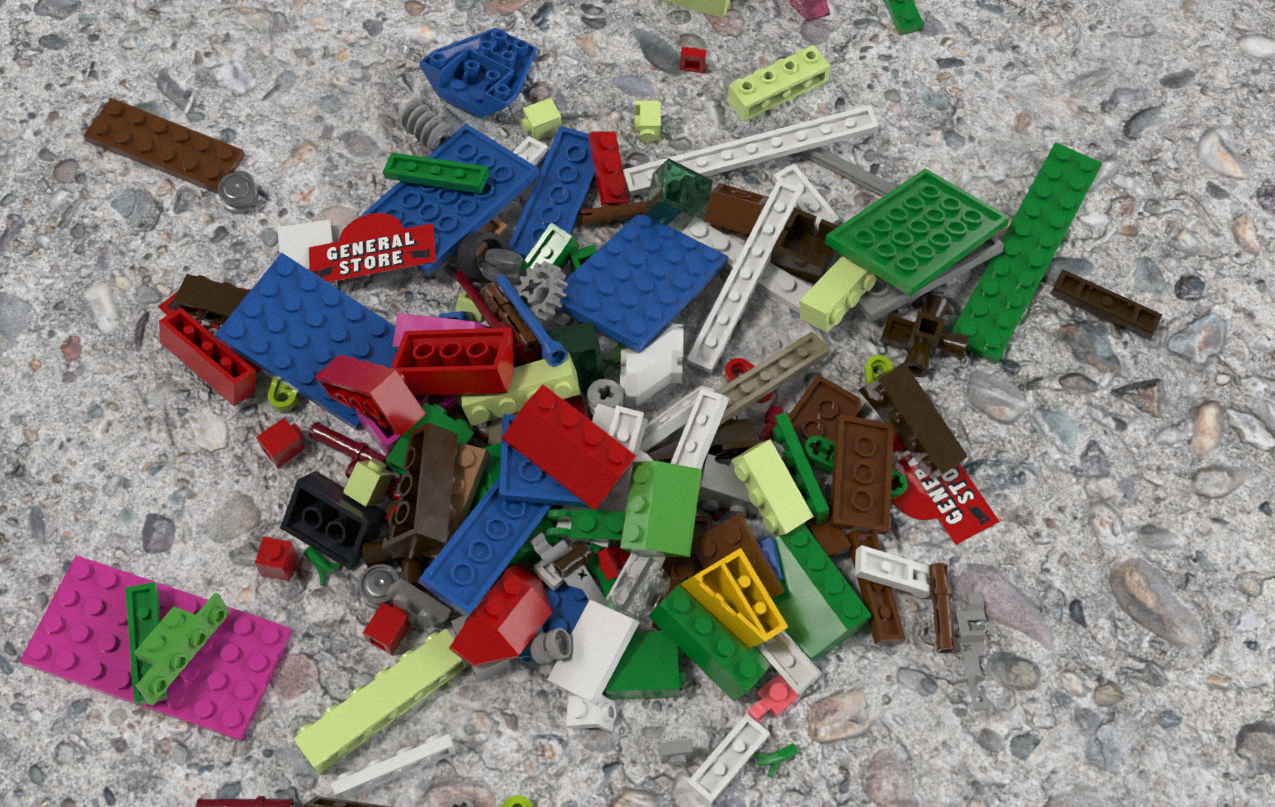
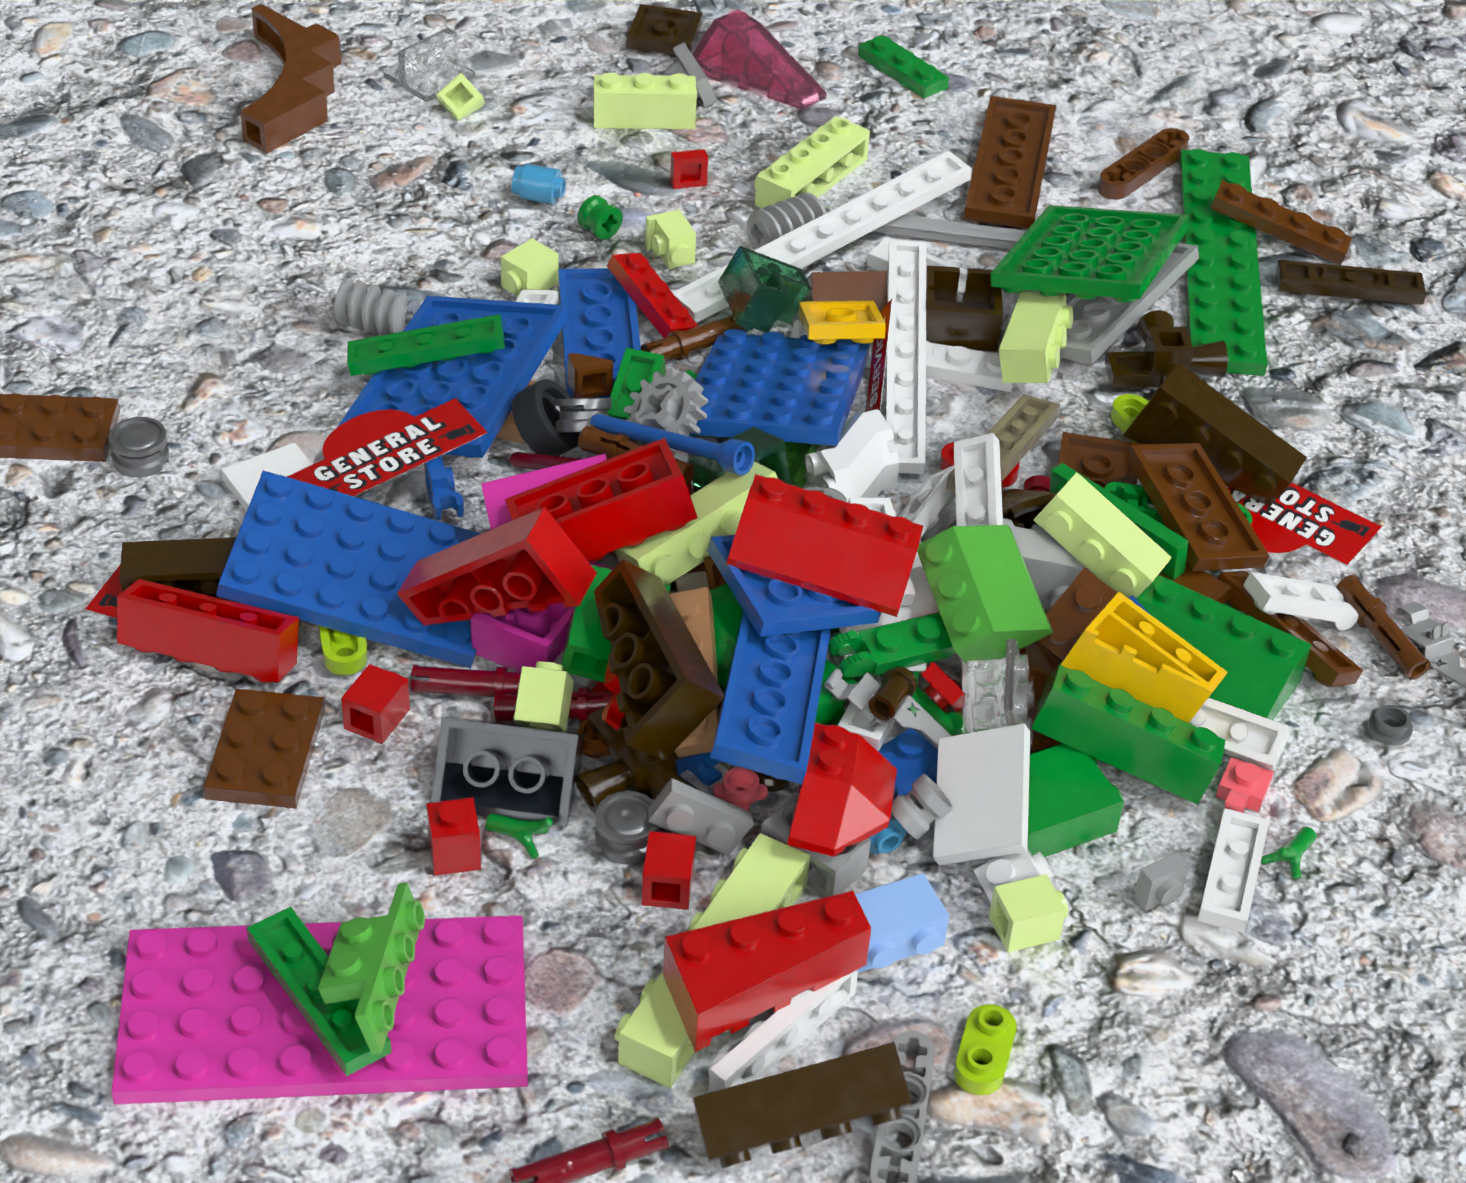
camera: 25 degrees left, 20 degrees down
(208, 449) = (265, 748): none -> reddish brown plate
(383, 729) = (762, 961): none -> red wedge
(398, 284) = (441, 488): none -> blue plate
(480, 71) = (413, 242): blue wedge -> none
(492, 720) = (903, 920): none -> light blue brick
(525, 231) = (589, 376): none -> reddish brown slope
(582, 742) = (1028, 912): none -> yellowish green brick
(586, 44) = (538, 183): none -> dark azure brick
(611, 86) = (600, 217): none -> green wheel
(712, 236) = (841, 320): none -> yellow plate
(724, 275) = (878, 362): none -> red sticker
(730, 128) = (781, 218): none -> light grey piece
(902, 680) = (1390, 725): none -> dark grey plate
(923, 117) = (1010, 162): none -> reddish brown plate
(1020, 143) = (1139, 165): none -> reddish brown beam
(1085, 235) = (1281, 222): none -> reddish brown plate

